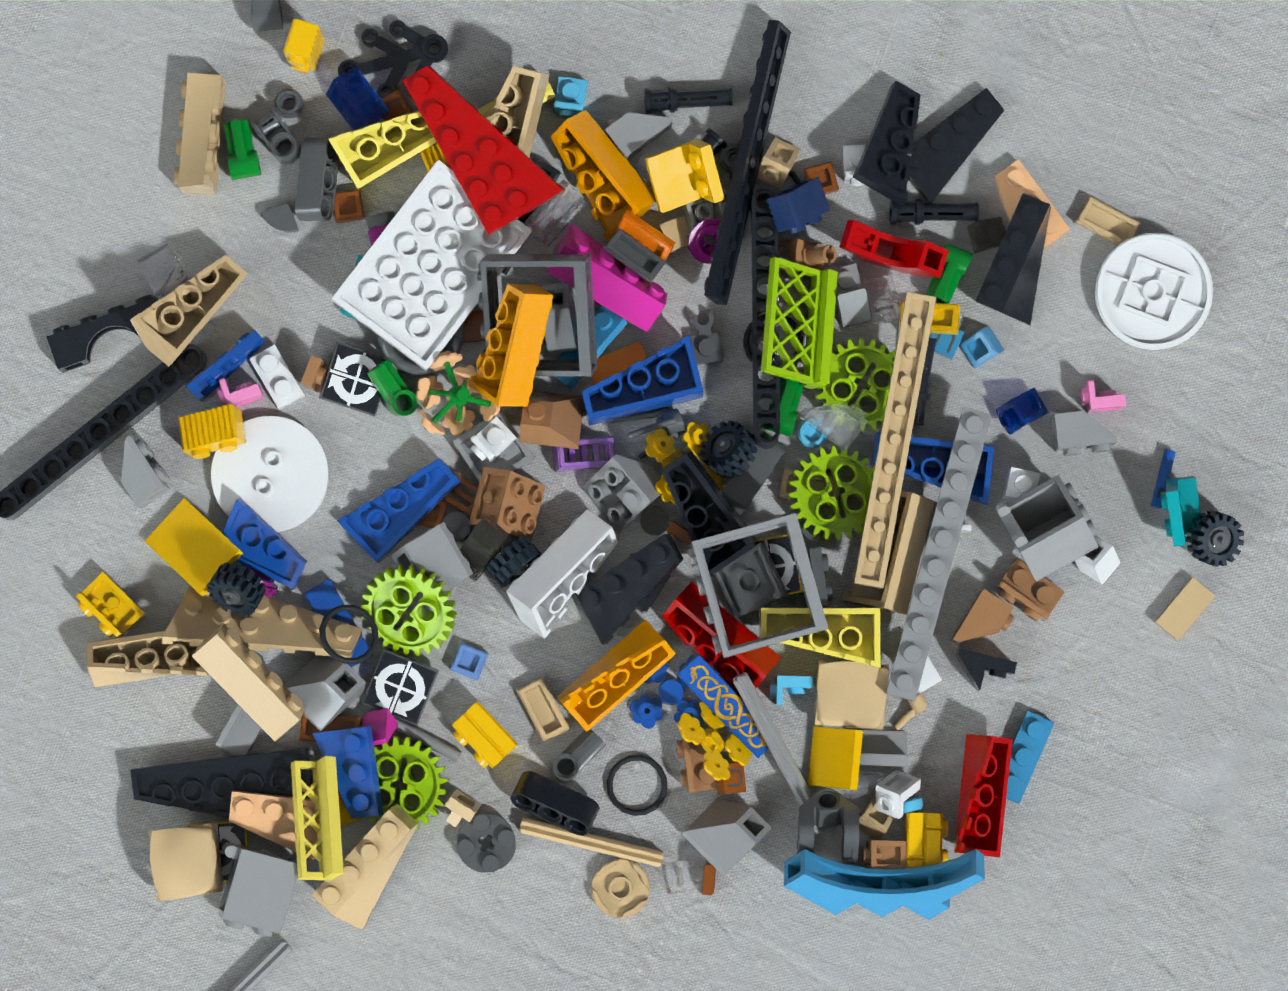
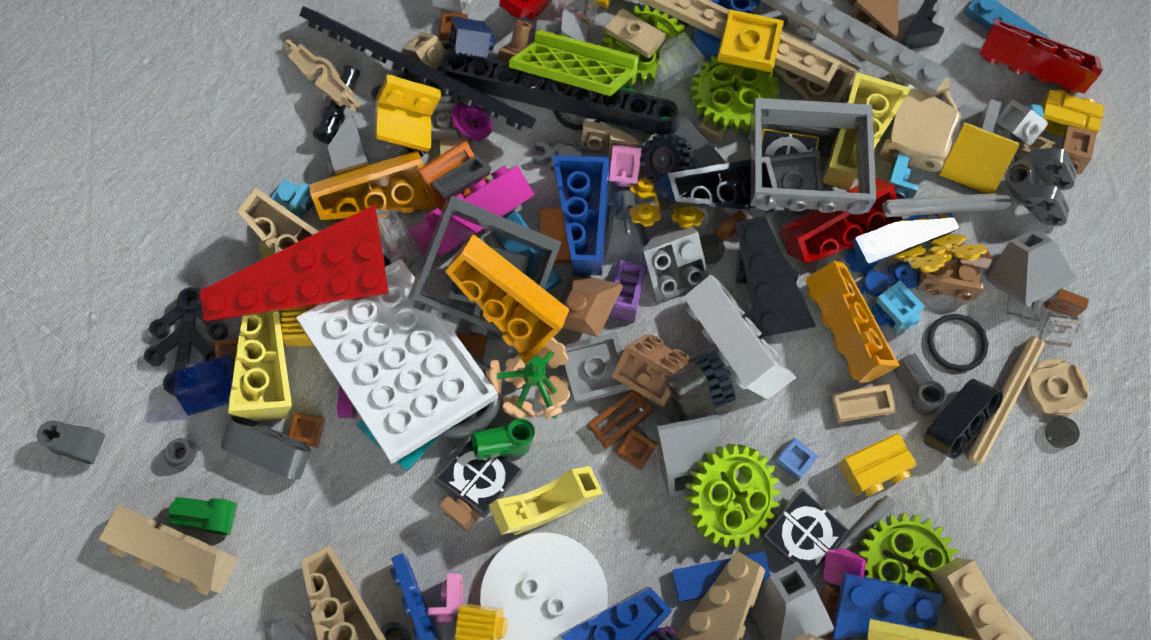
camera: 70 degrees left, 15 degrees down
(275, 132) = (200, 474): dark grey piece -> none
(277, 377) = (446, 556): white plate -> none
(281, 218) = (289, 498): dark grey tile -> none
(303, 46) = (128, 413): yellow brick -> none
(332, 653) = (745, 588): black piece -> none
(349, 446) = (546, 503): none -> light yellow arch
(379, 219) = (331, 399): dark grey tile -> none
(394, 514) = (627, 481): blue wing -> none
(461, 807) = (947, 511): tan tile -> none
(482, 826) = (1002, 495): dark grey plate -> none
(492, 440) = (587, 361): white bracket -> none
(576, 901) = (1062, 432): none -> clear smoke tile
(649, 719) = (901, 306): none -> medium azure bracket
(703, 81) = (328, 81): none -> tan piece
(708, 409) = (624, 165): none -> bright pink bracket
(732, 396) = (603, 137): none -> tan slope
(809, 436) = (676, 95): medium azure tile -> none
(860, 371) = (635, 33): none -> tan plate
(873, 490) = (750, 40): none -> yellow tile
(882, 891) = (1119, 123): dark azure arch -> none

